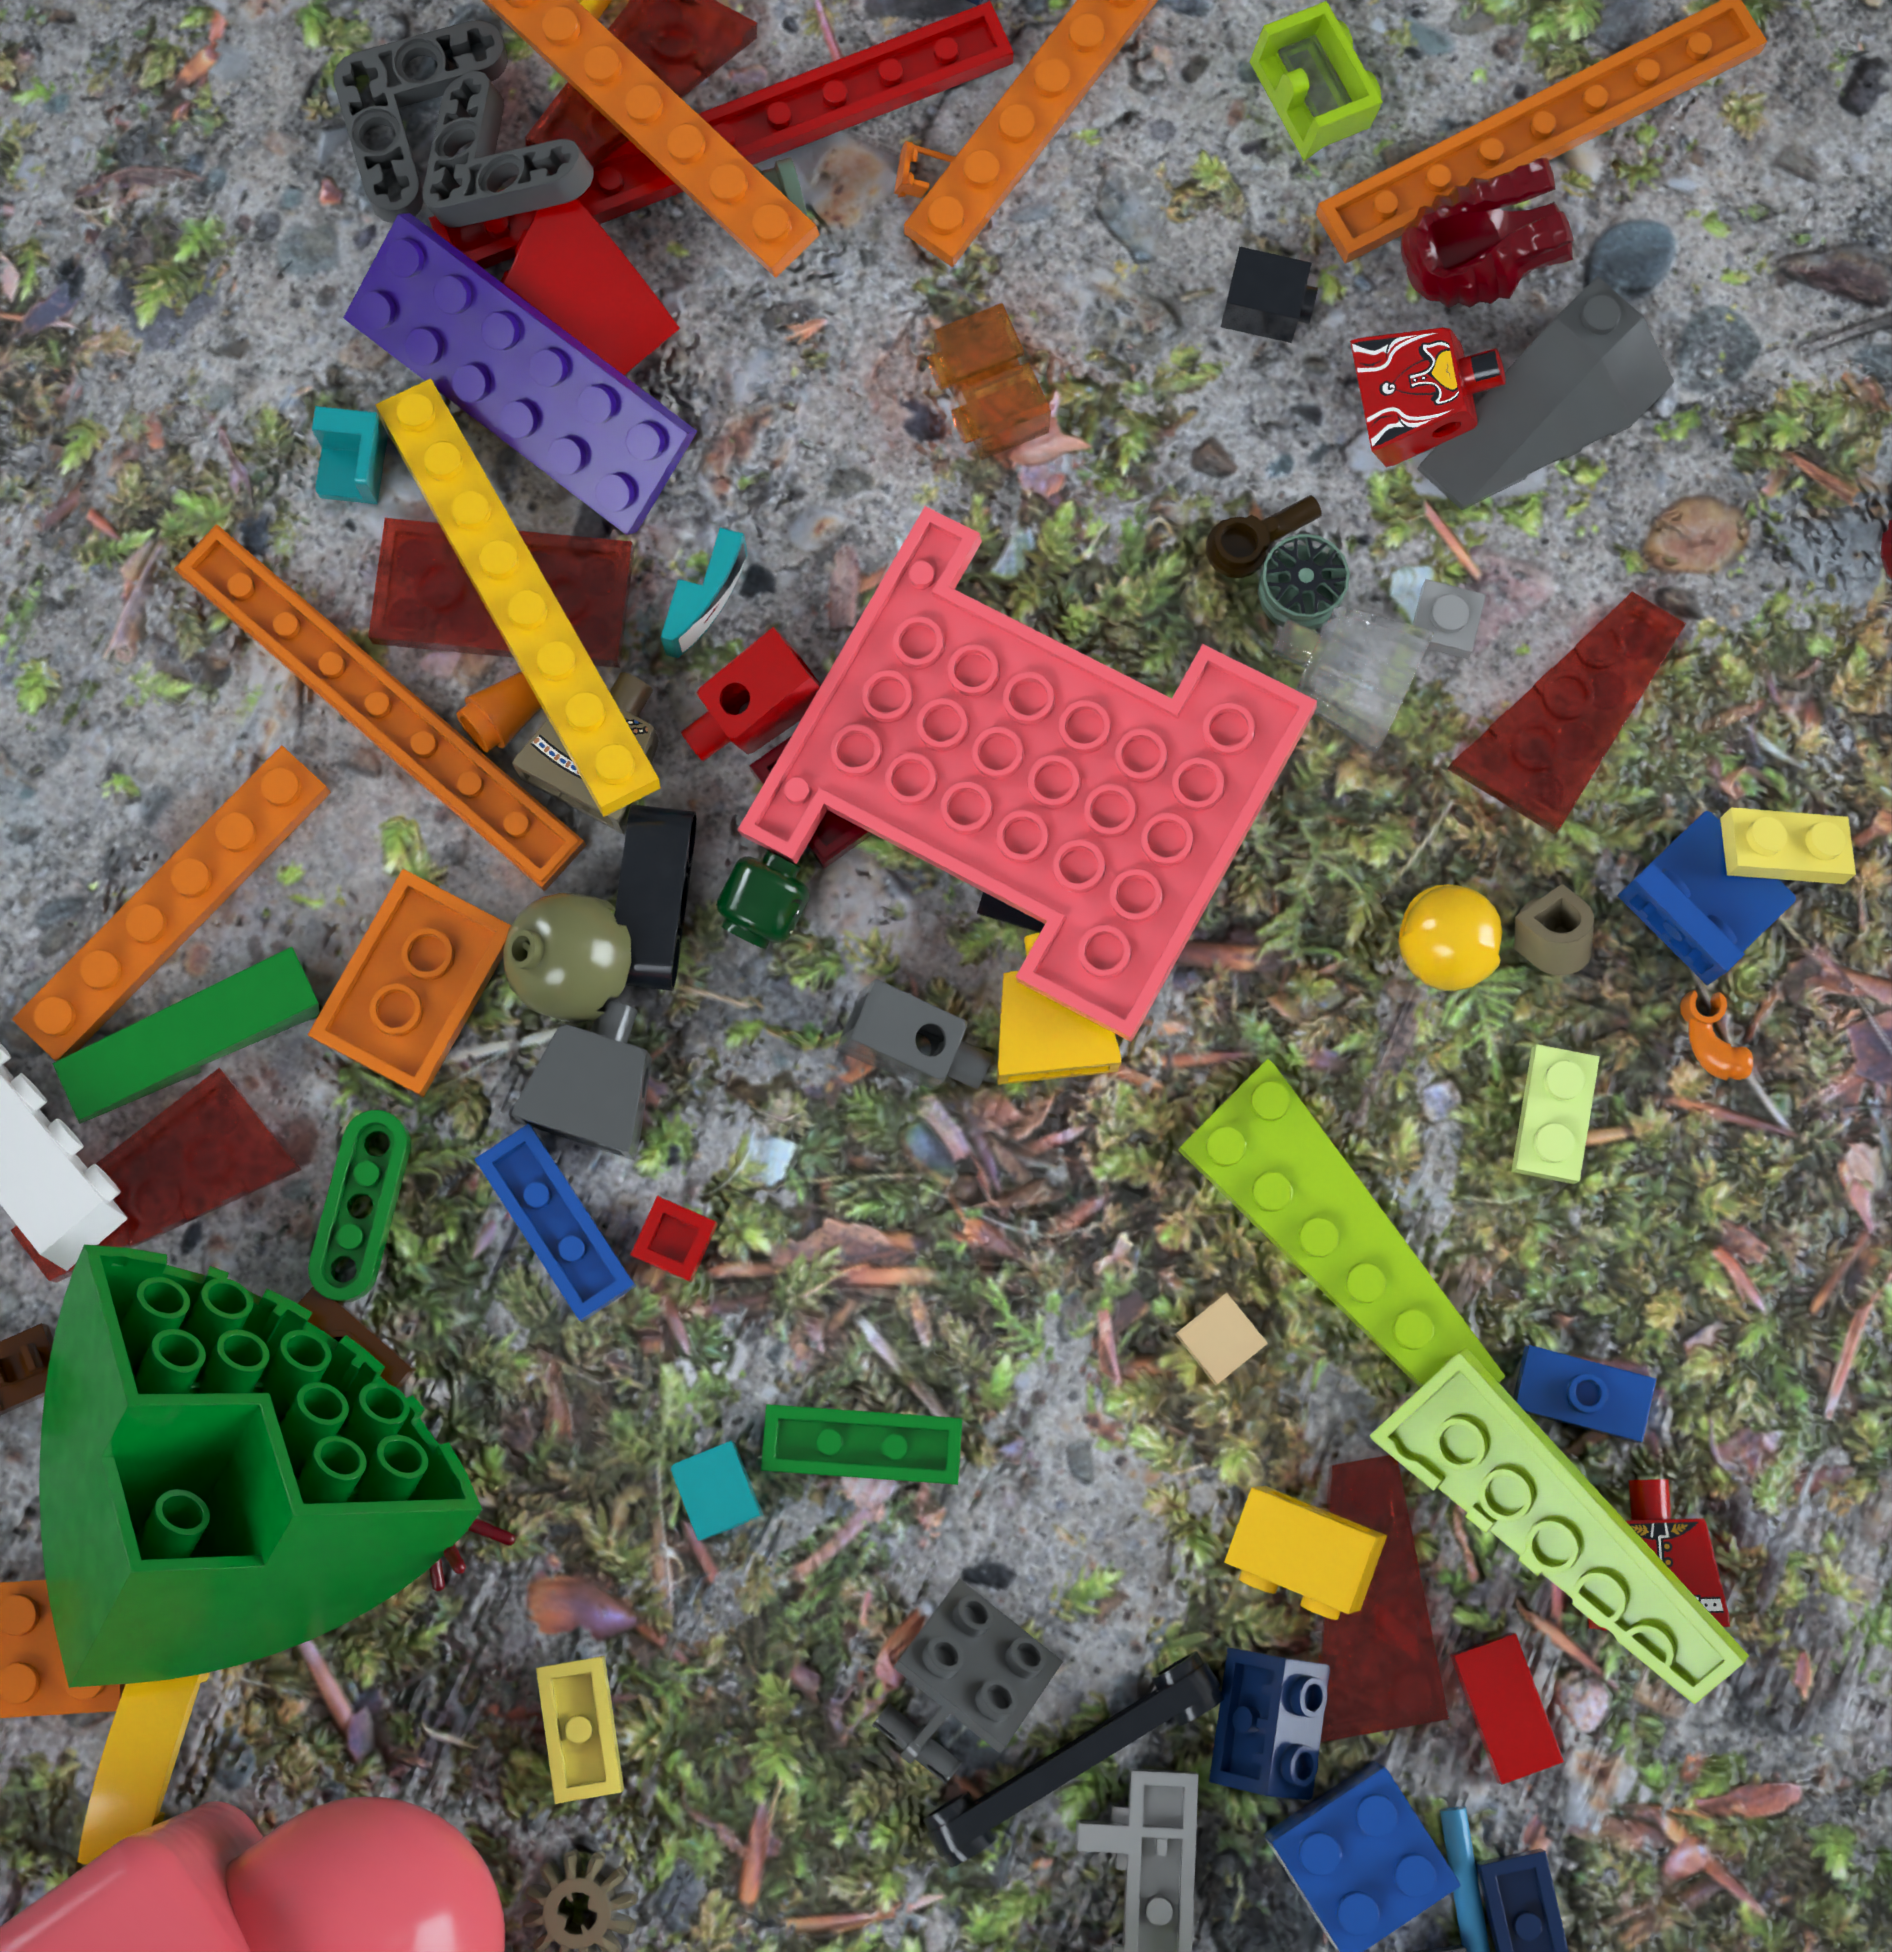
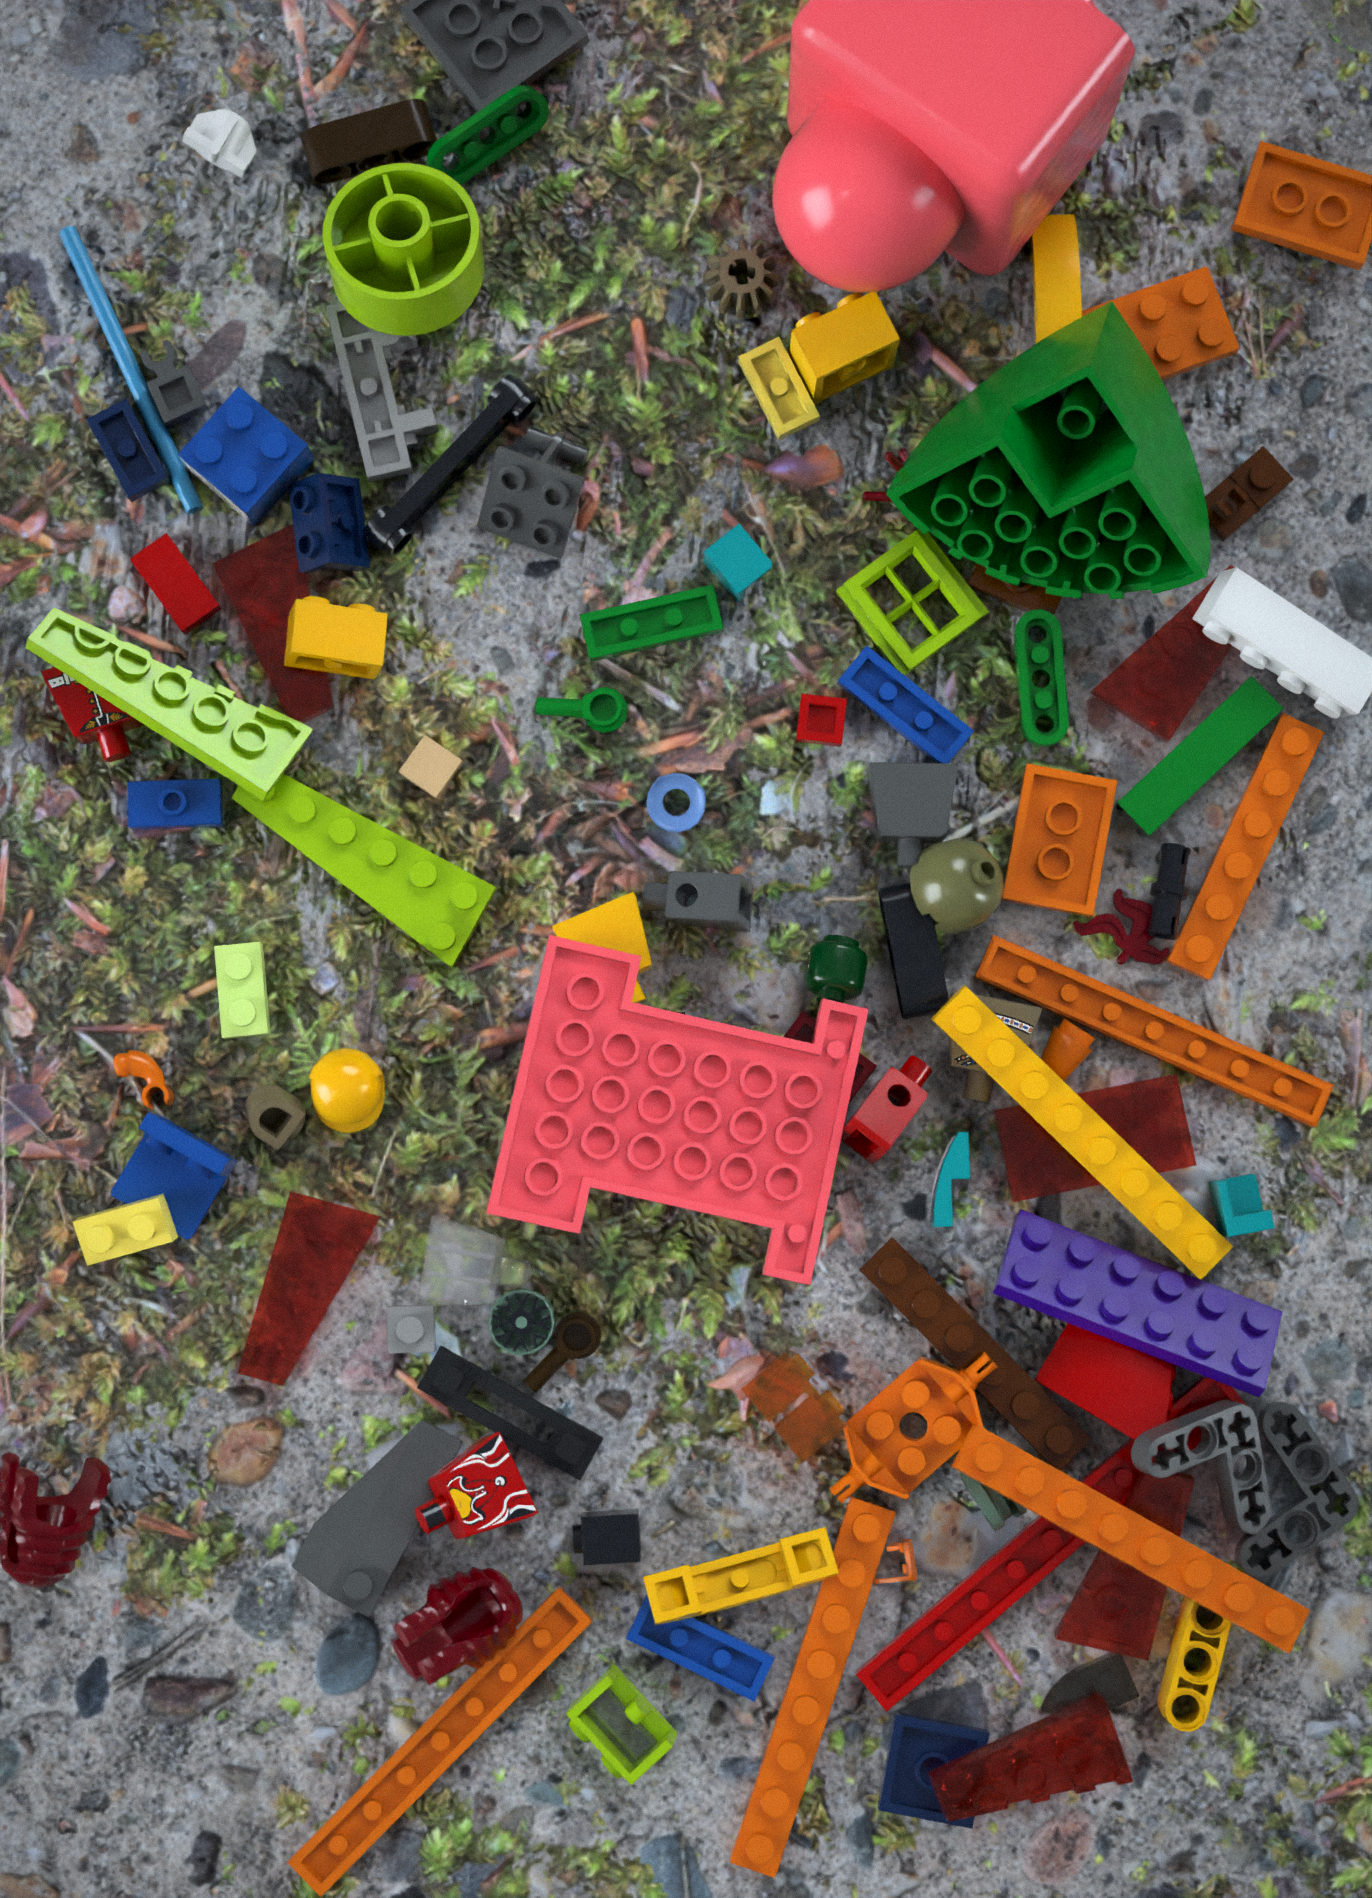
camera: 165 degrees right, 5 degrees up
(293, 872) = (1168, 891): none -> black pin
(343, 839) = (1136, 943): none -> dark red piece
(470, 1754) = (843, 345): none -> yellow brick
(552, 1349) = (880, 626): none -> lime piece
(744, 384) = (963, 1342): none -> reddish brown plate
(883, 281) = (889, 1458): none -> orange plate
(904, 1162) = (656, 806): none -> medium blue piece
(965, 1345) = (601, 709): none -> green plate
(1120, 202) = (740, 1577): none -> yellow slope
(1193, 140) = (704, 1651): none -> blue plate
(1411, 544) = (451, 1379): none -> black container

